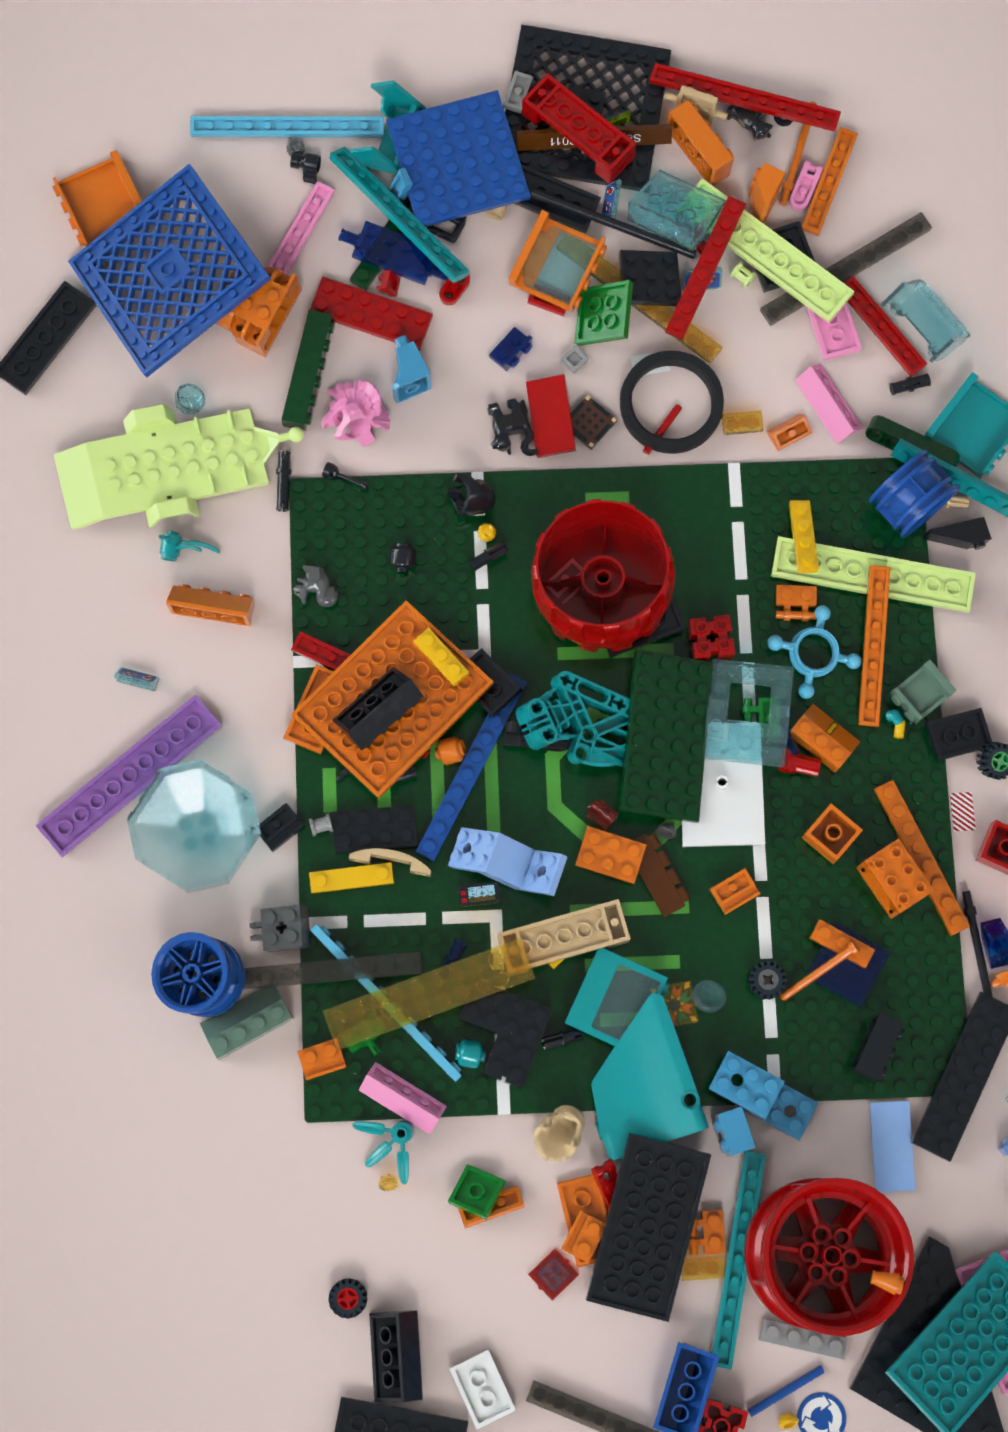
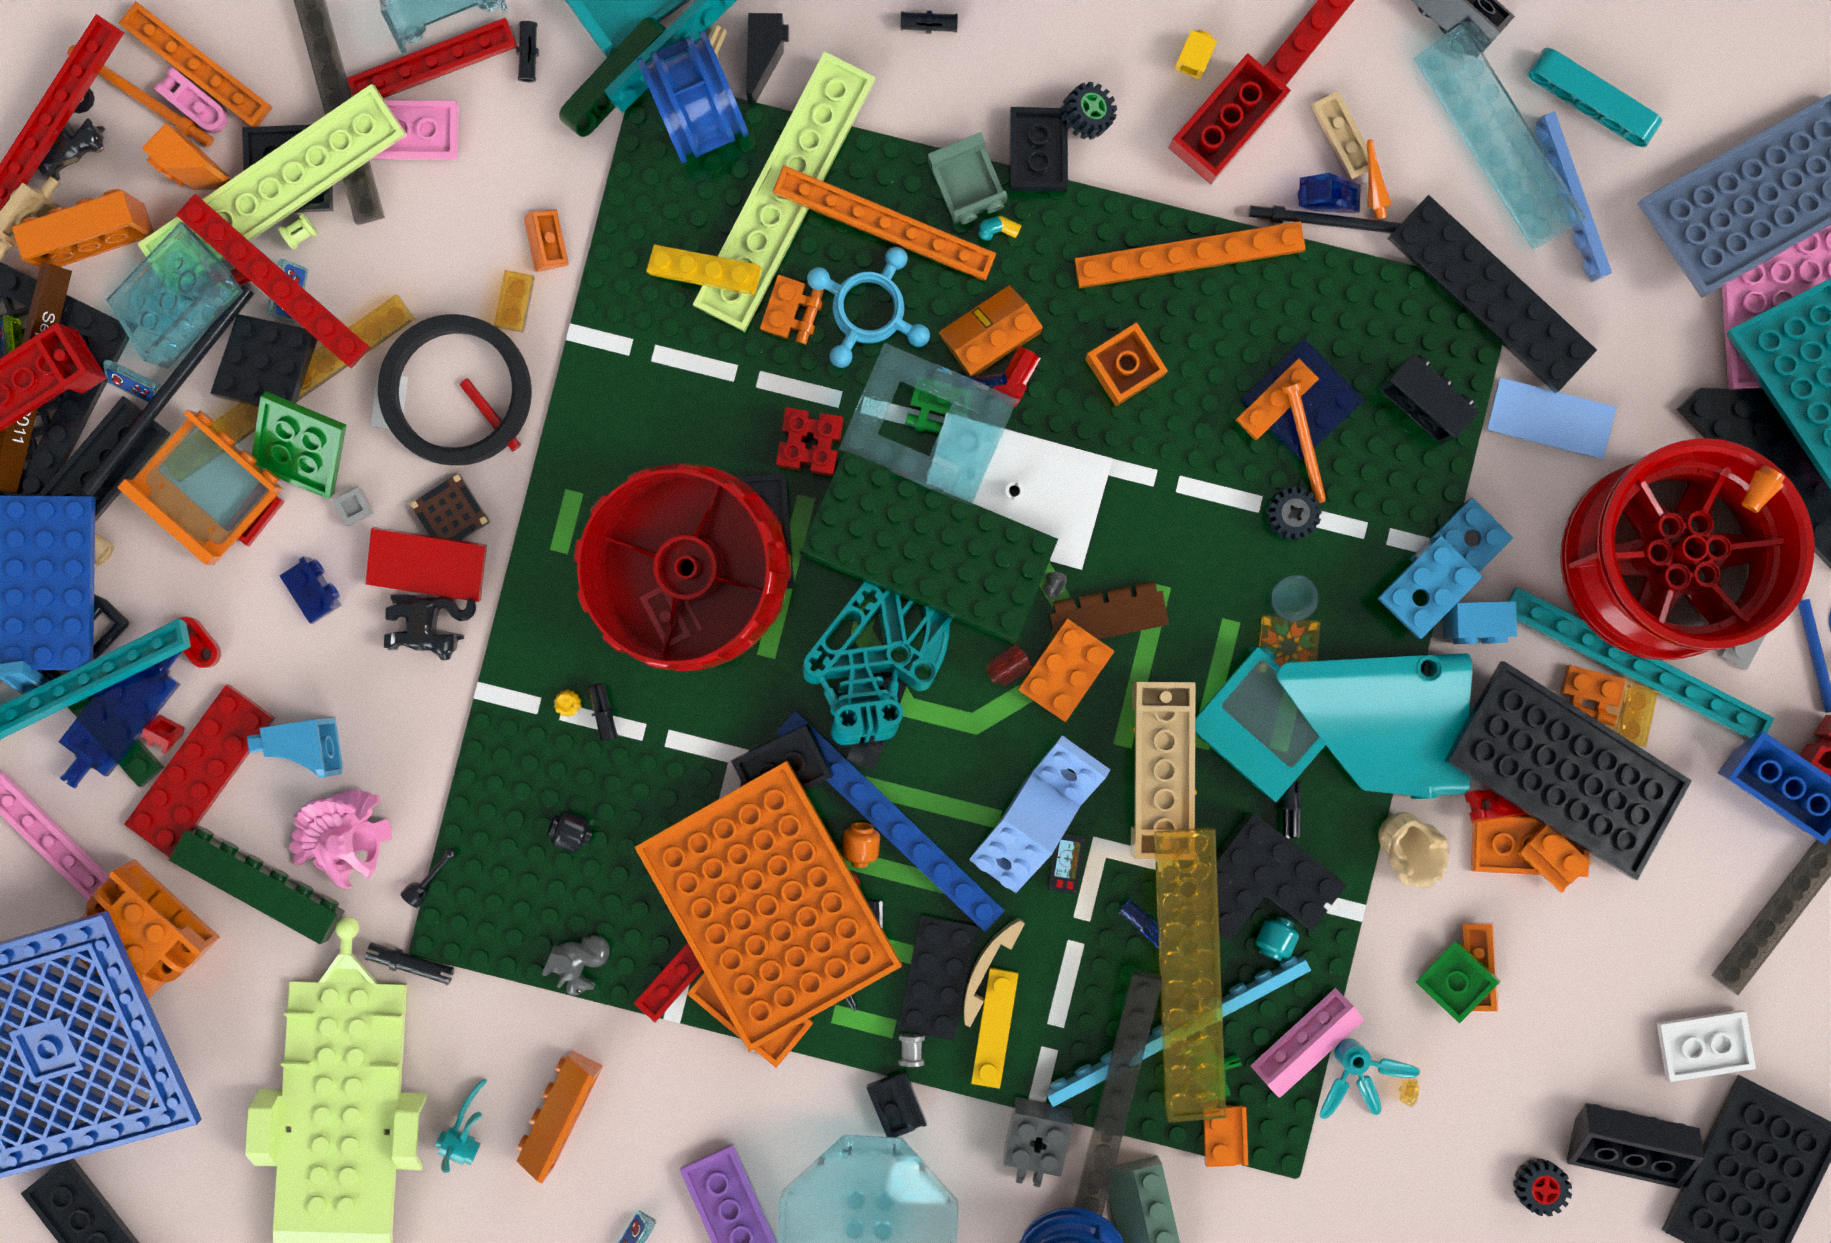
camera: 65 degrees left, 10 degrees up
(189, 399) = (250, 1063): clear light blue piece -> none
(378, 708) = (779, 932): black slope -> none
(441, 657) = (731, 823): yellow plate -> none
(479, 496) = (515, 701): black piece -> none
(553, 1274) = (1586, 909): piece -> none
(734, 891) = (1163, 519): orange plate -> none
(828, 403) = (521, 173): bright pink panel -> none
(895, 878) = (1214, 300): orange container -> none
(962, 811) = (1140, 179): sticker -> none

